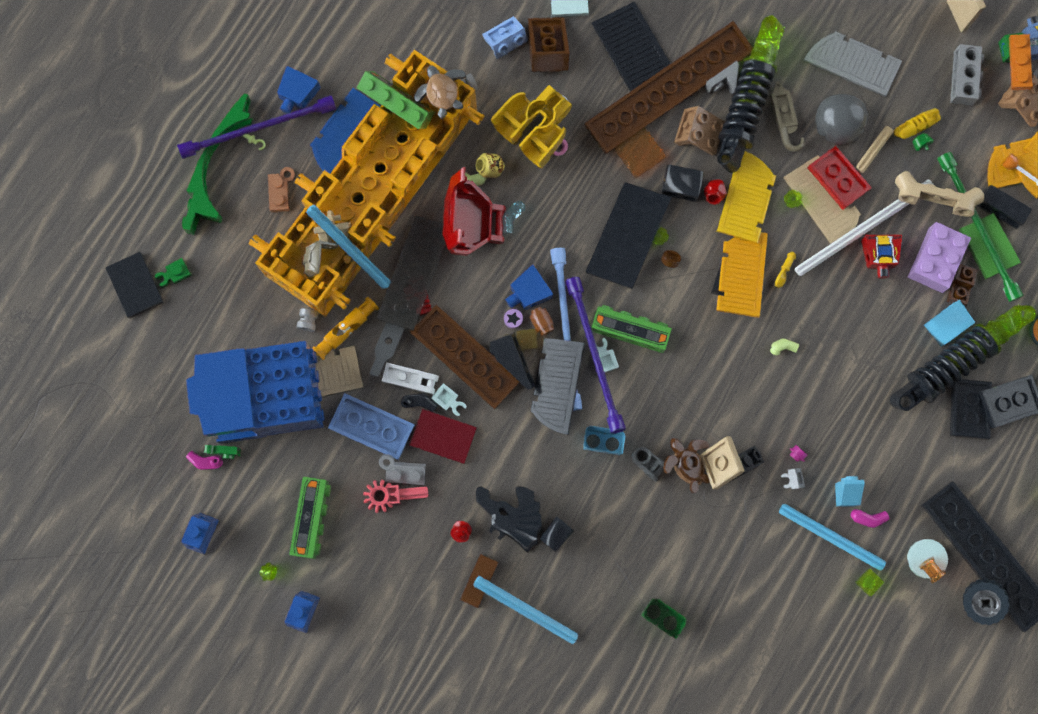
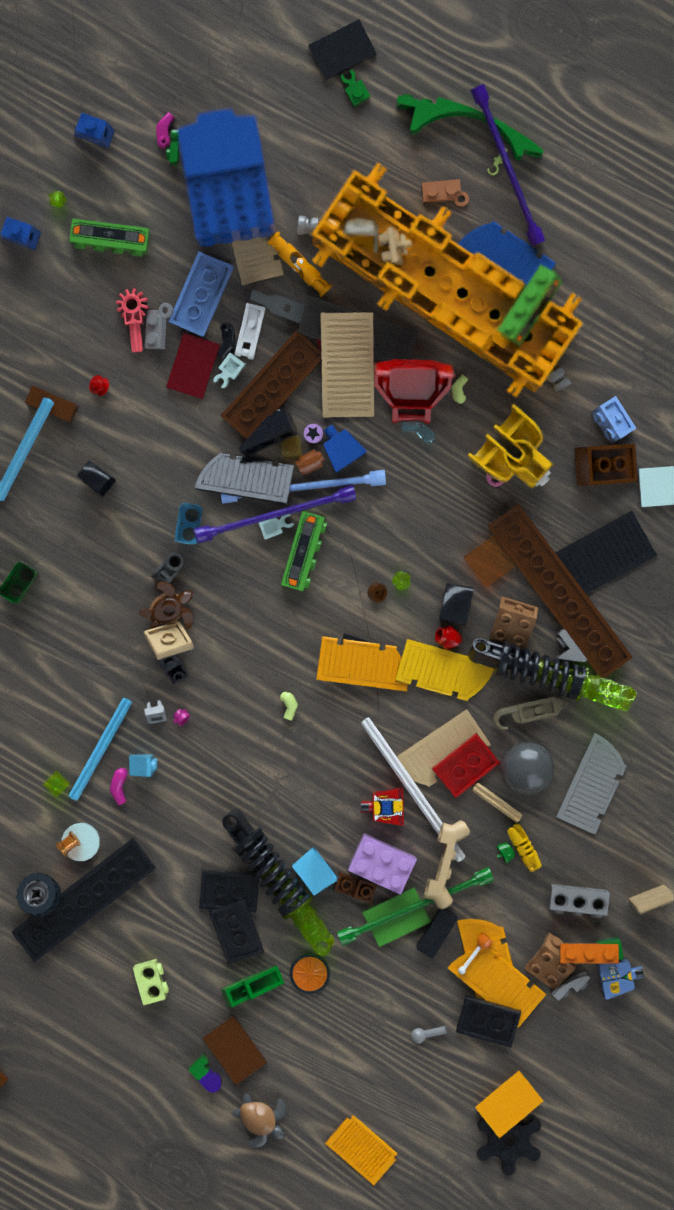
camera: 95 degrees right, 10 degrees up
(296, 89) = (550, 204): blue torso -> none
(348, 247) = (374, 263): medium azure axle -> none
(441, 90) = (537, 351): medium nougat animal -> none
(446, 282) = (347, 364): none -> tan window
(490, 165) = (471, 406): light yellow head -> none
(521, 523) = (106, 444): black animal -> none
(628, 235) = (401, 549): black window -> none
(781, 278) = (361, 705): yellow piece -> none
(788, 198) = (442, 722): clear neon green plate -> none

